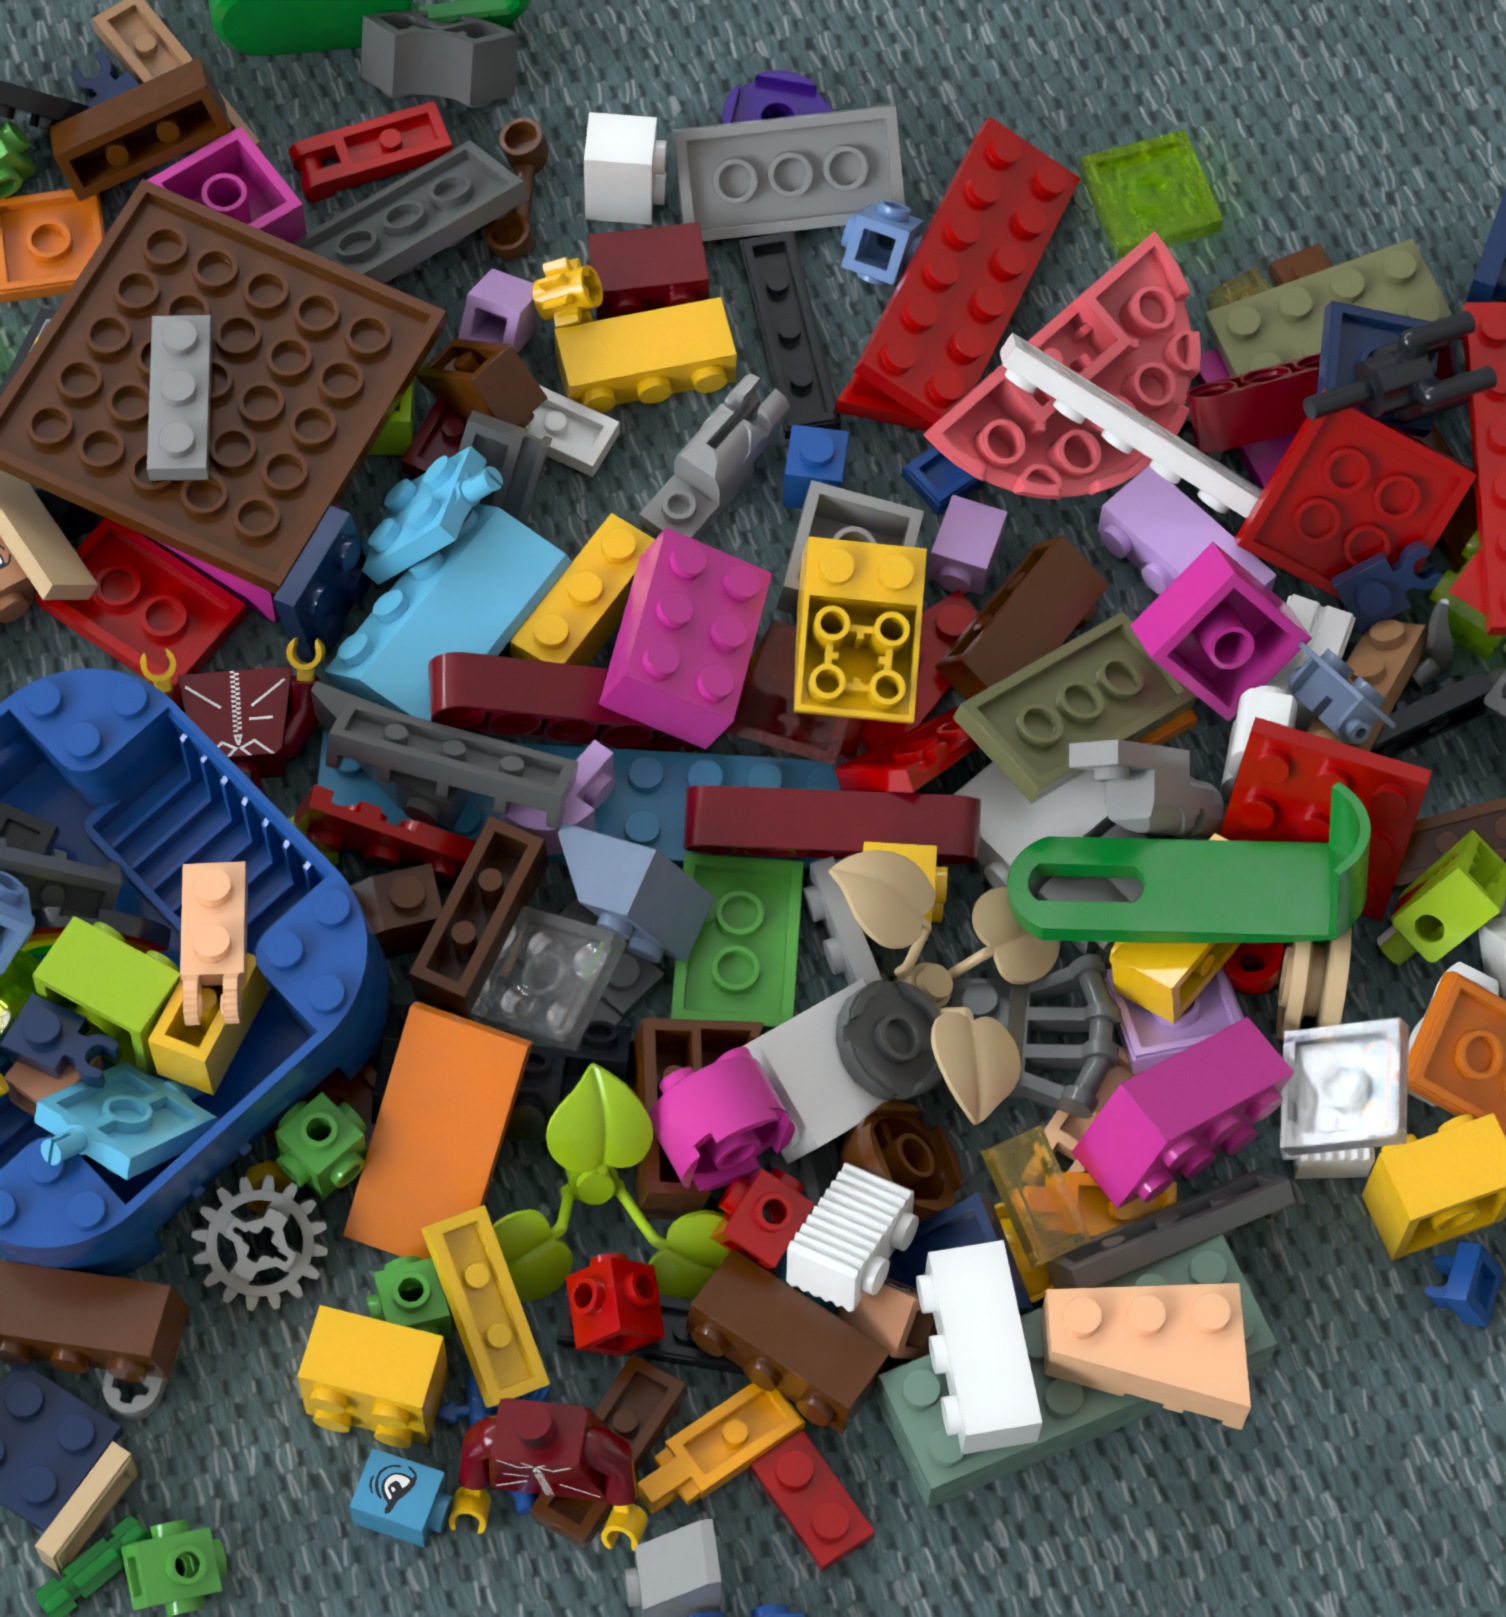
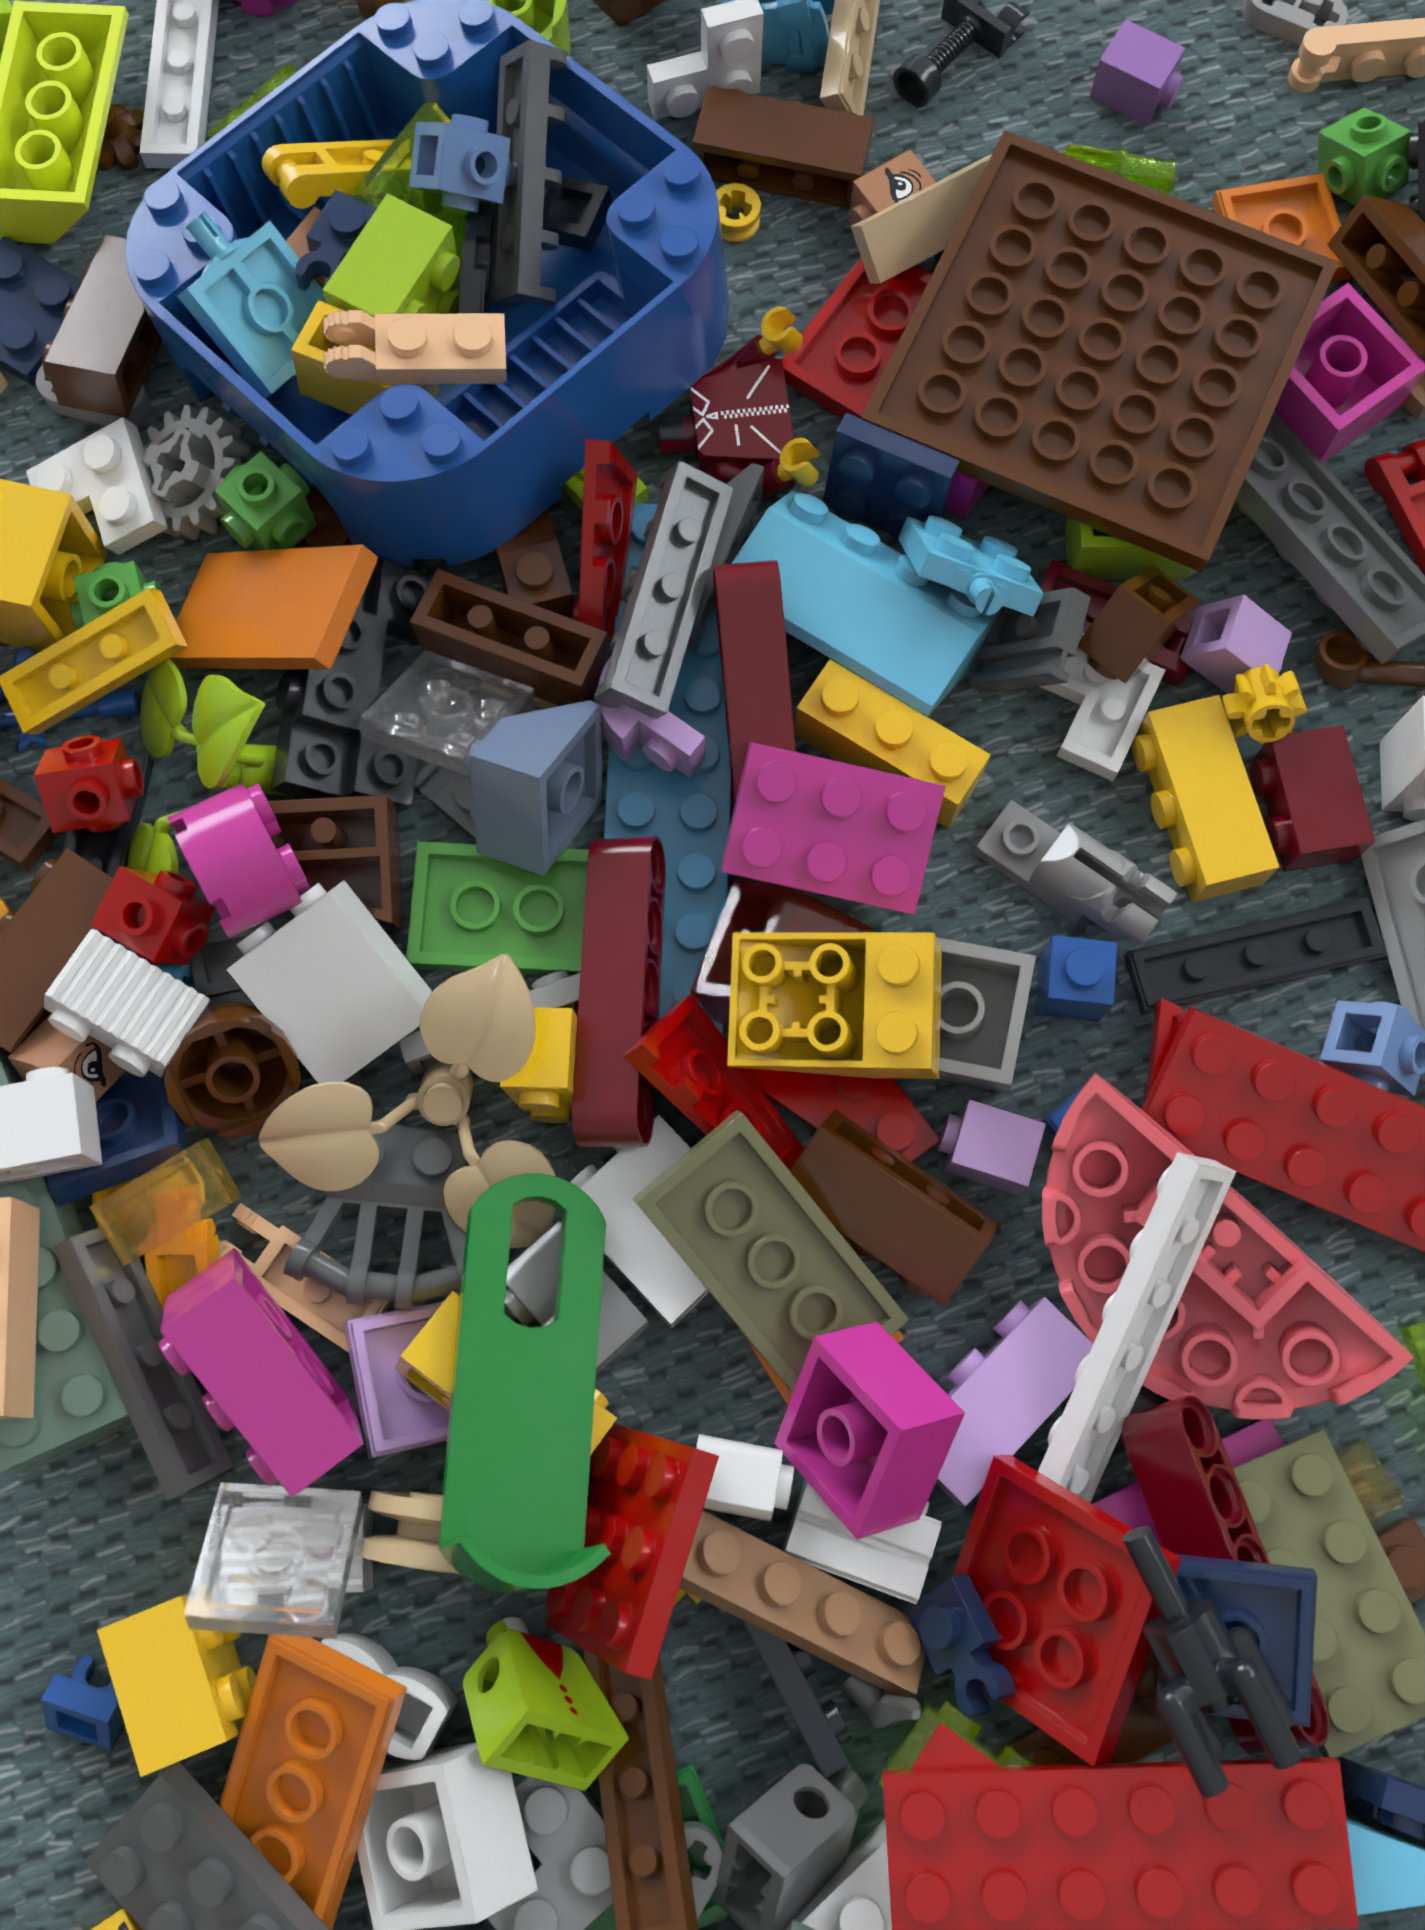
camera: 90 degrees right, 10 degrees up
(180, 398) = (1072, 306): light grey plate -> none
(249, 1332) = (110, 478): none -> white plate
(888, 1040) = (366, 1034): dark grey tile -> none
(1151, 788) = (667, 1339): light grey plate -> none
(1342, 706) = (761, 1591): sand blue hinge -> none

